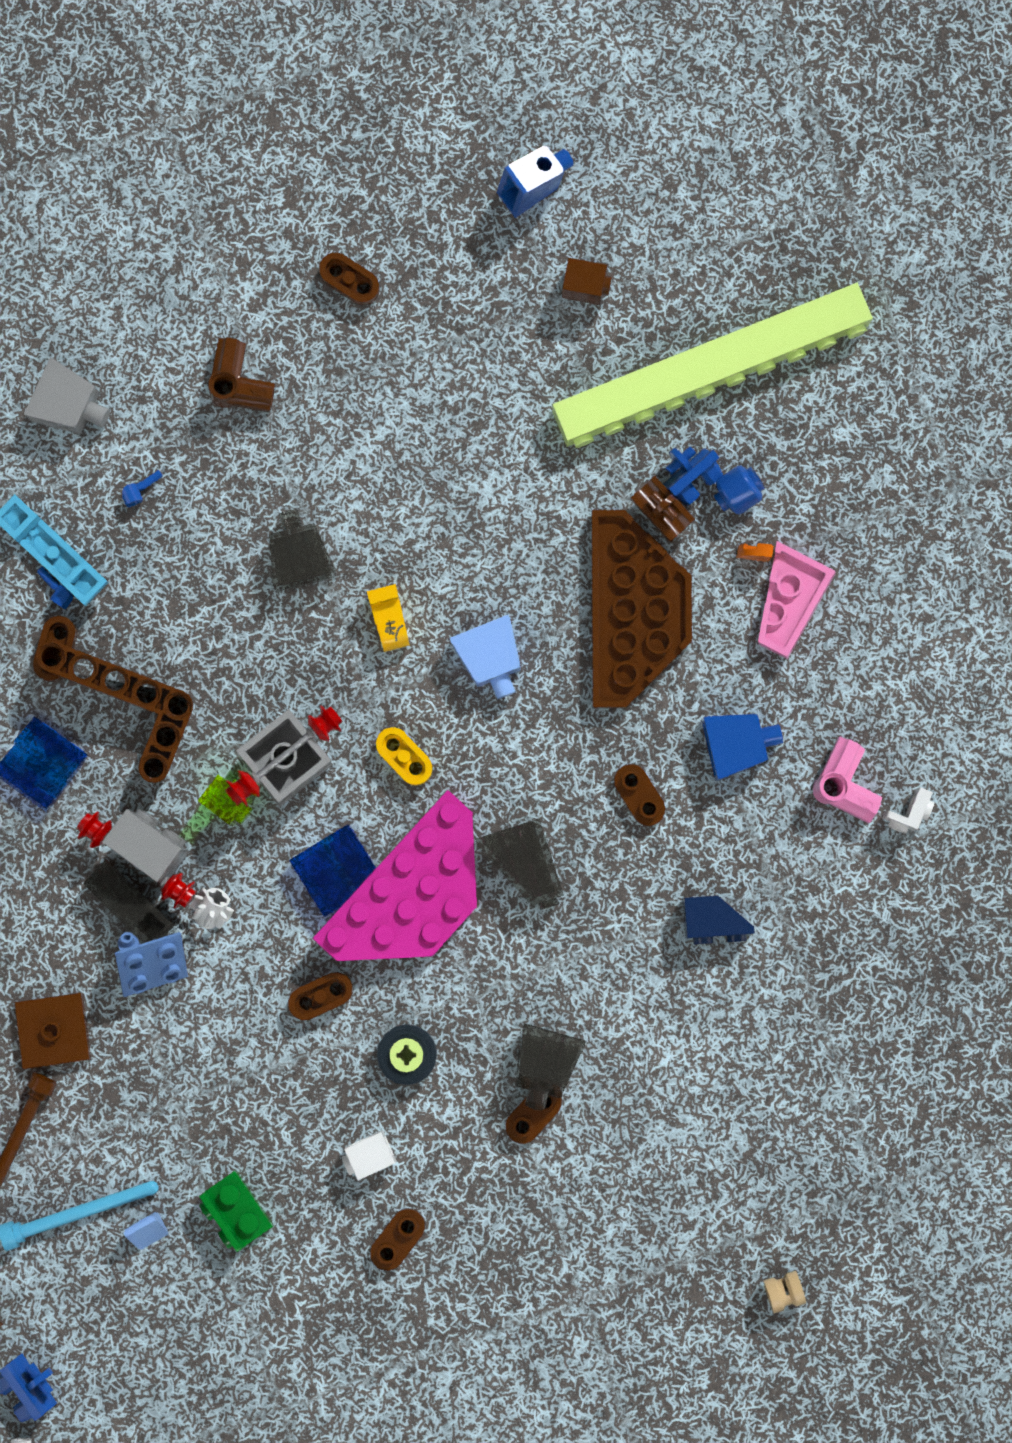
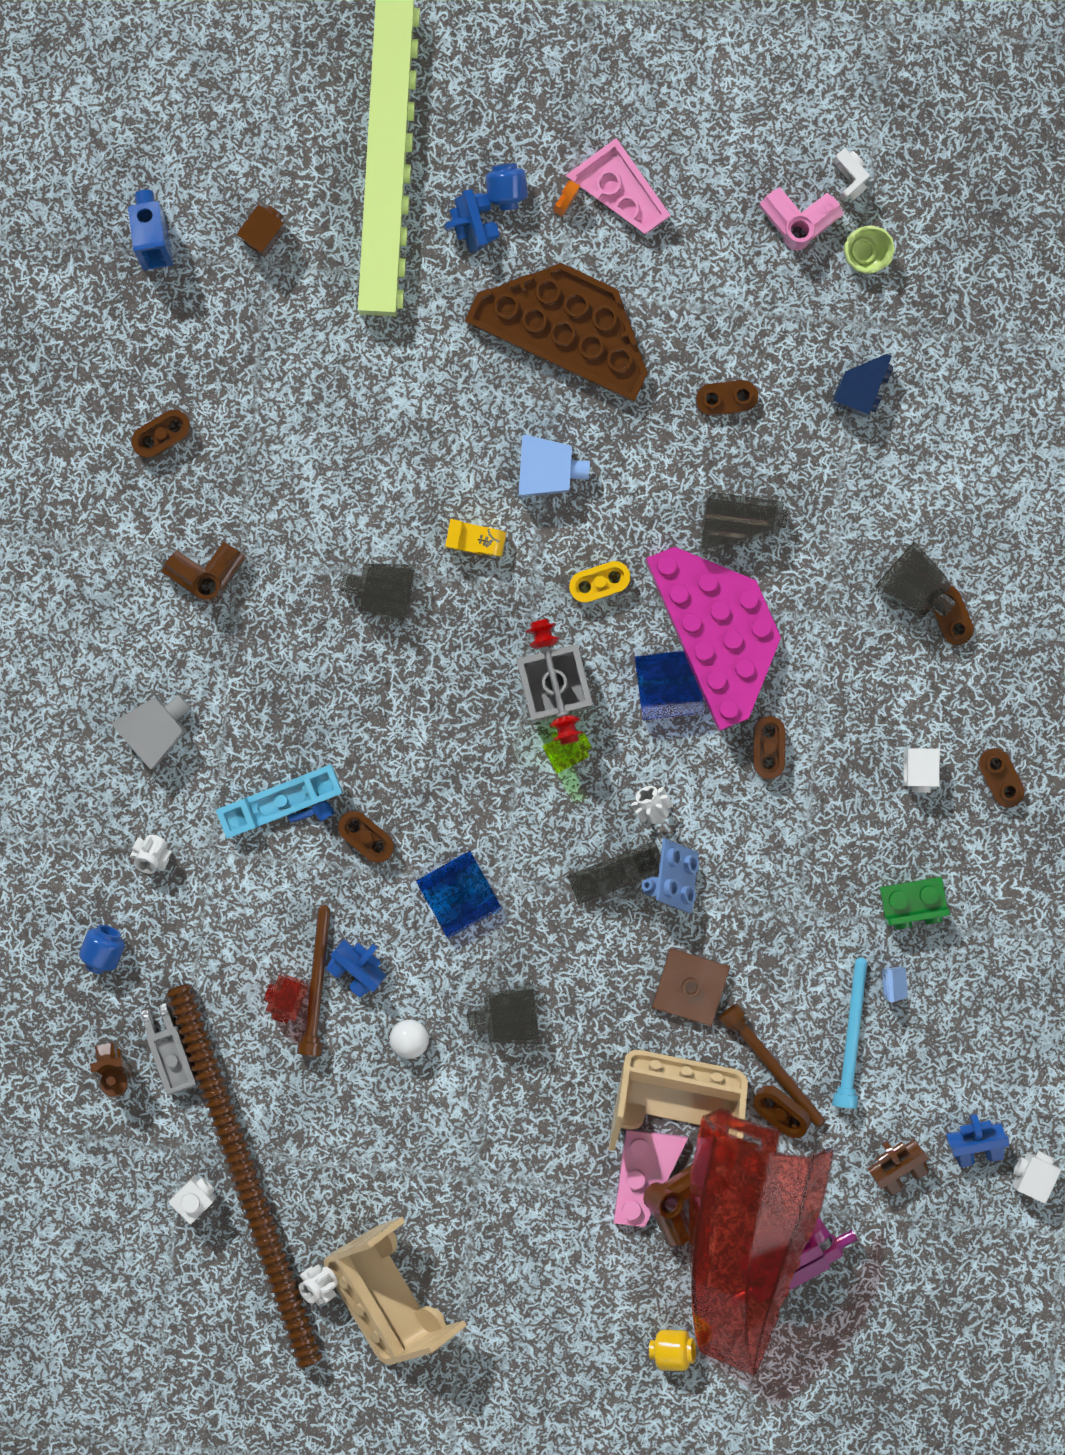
camera: 70 degrees left, 5 degrees up
(127, 694) = (436, 790): reddish brown beam -> none
(131, 492) = (261, 709): blue hand -> none
(145, 847) = (576, 836): light grey brick -> none
(418, 1047) = (842, 693): black wheel -> none
(662, 509) = (492, 259): reddish brown hips -> none
(738, 742) = (723, 293): blue torso -> none
(847, 863) = (869, 249): none -> yellowish green hair

